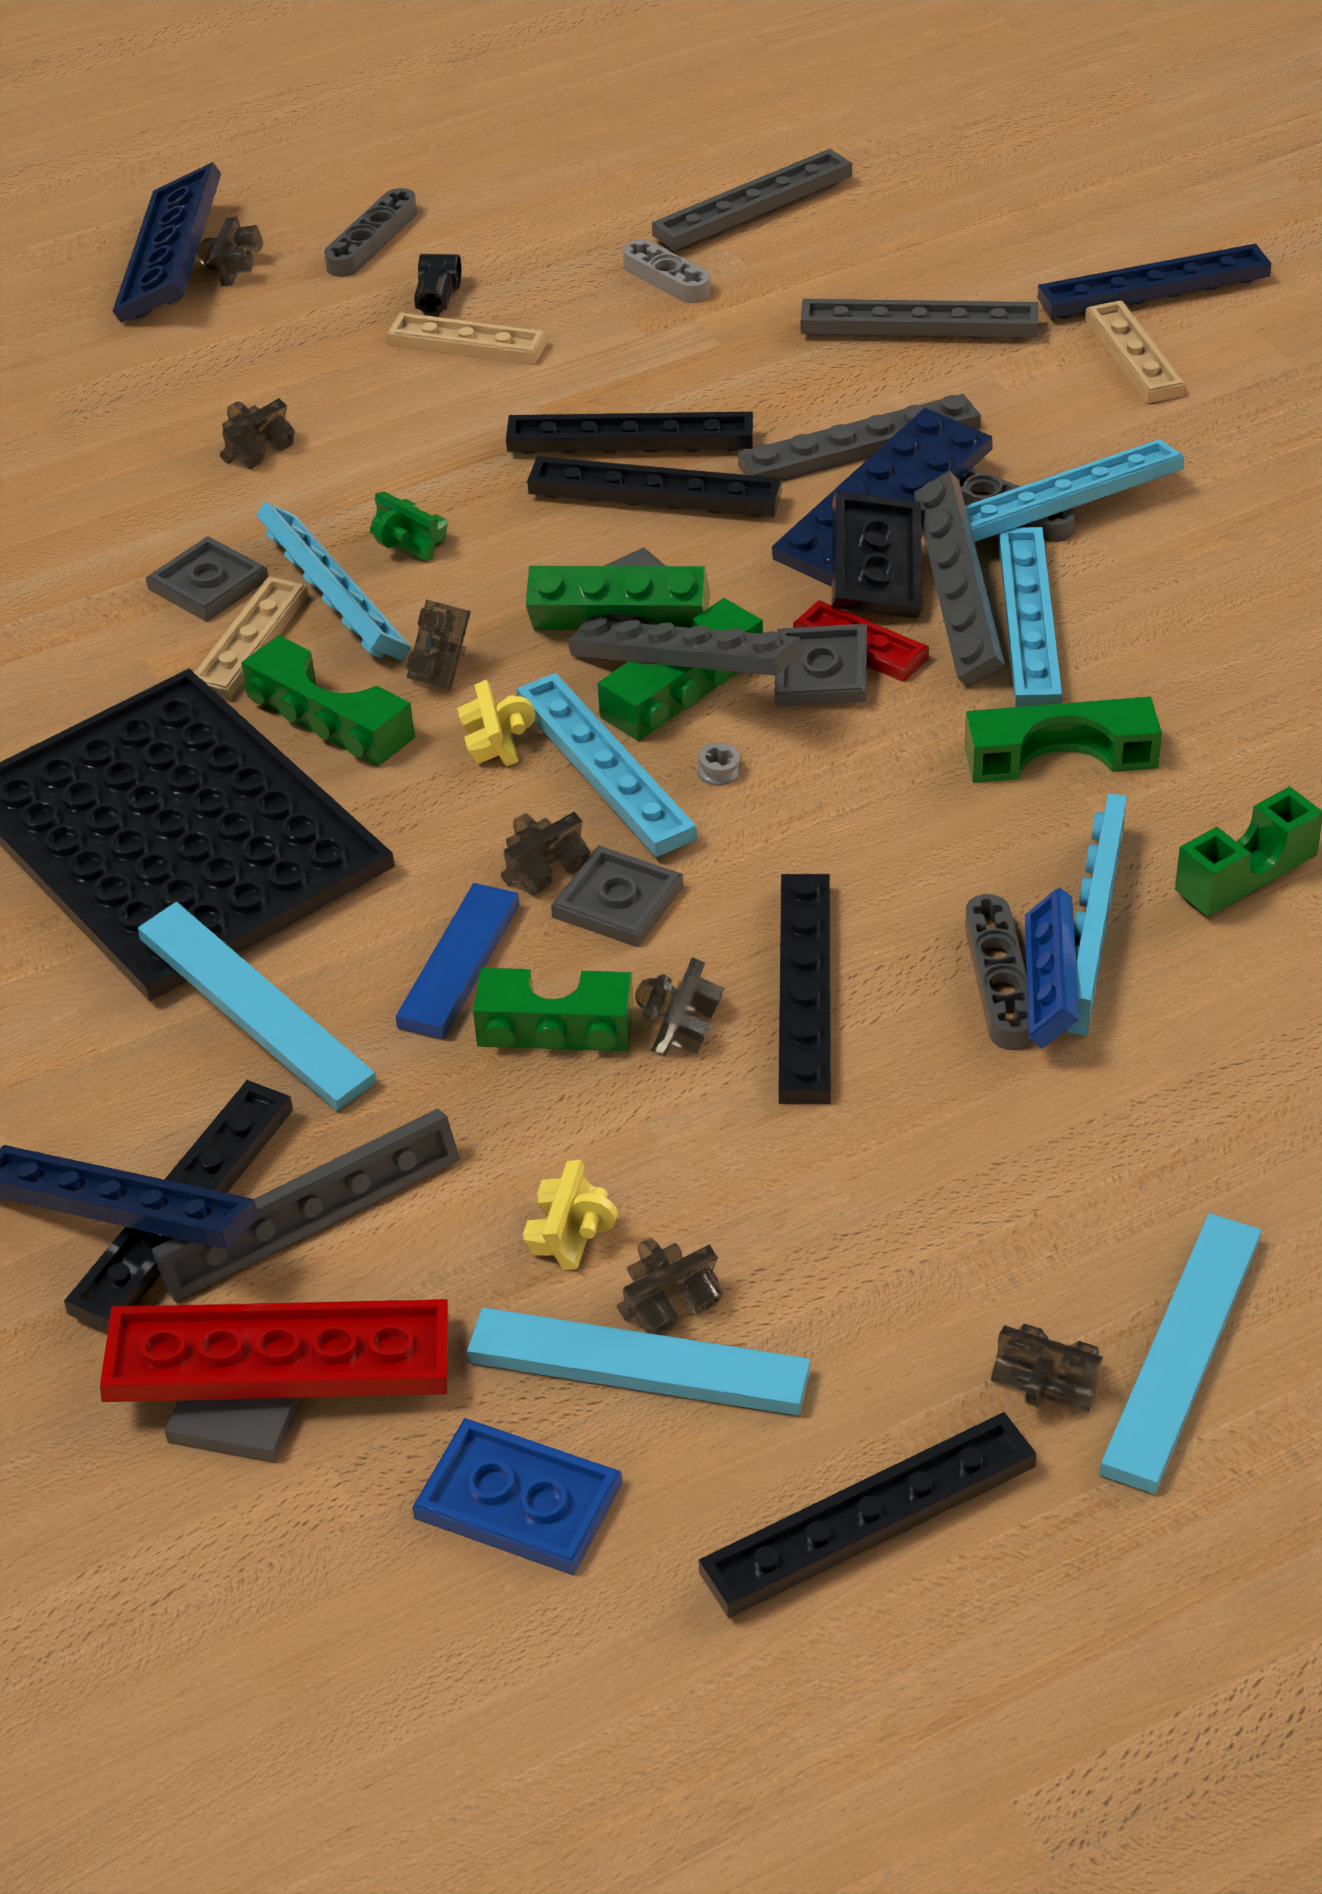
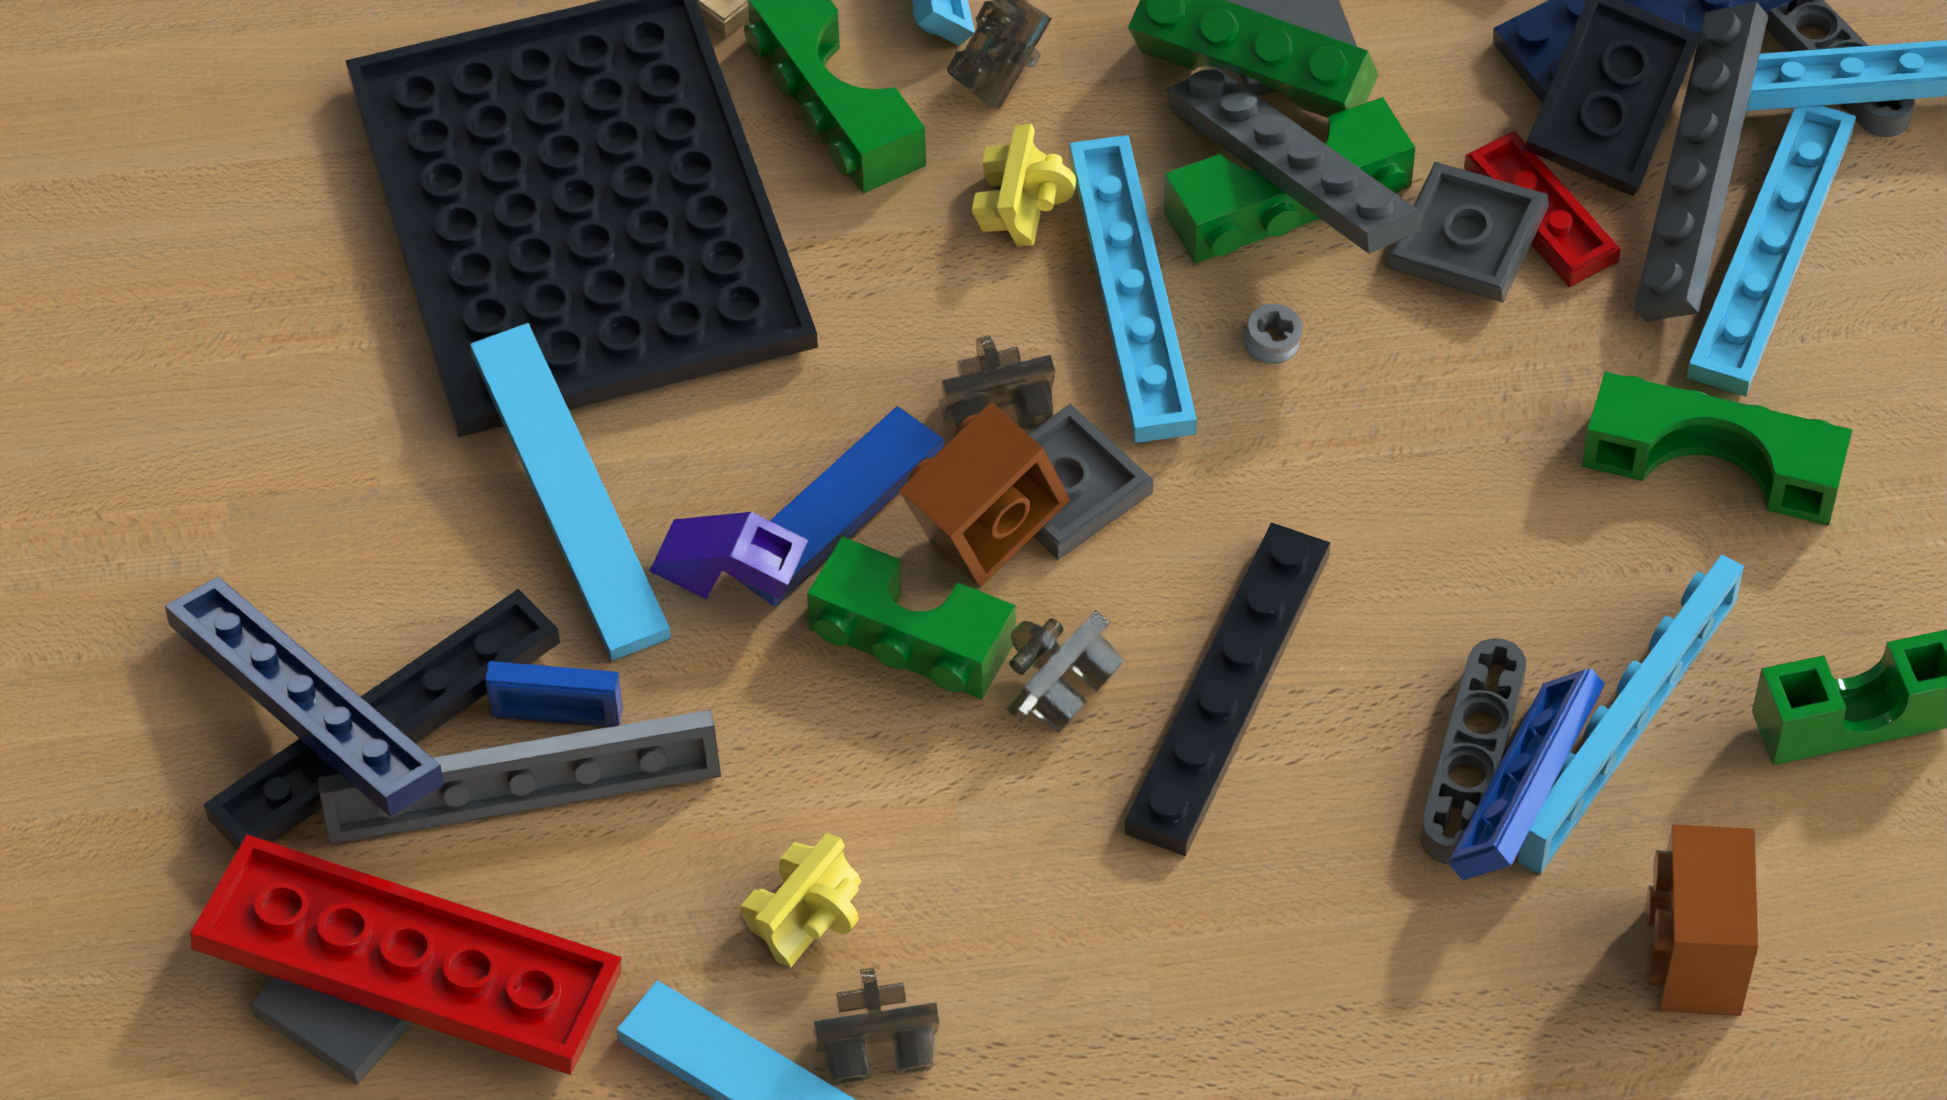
camera: 20 degrees right, 10 degrees up
(306, 1140) = (554, 694): none -> blue tile
(376, 1012) = (733, 543): none -> dark purple slope
(574, 905) = (984, 493): none -> dark orange brick
(1229, 1014) = (1703, 919): none -> dark orange brick

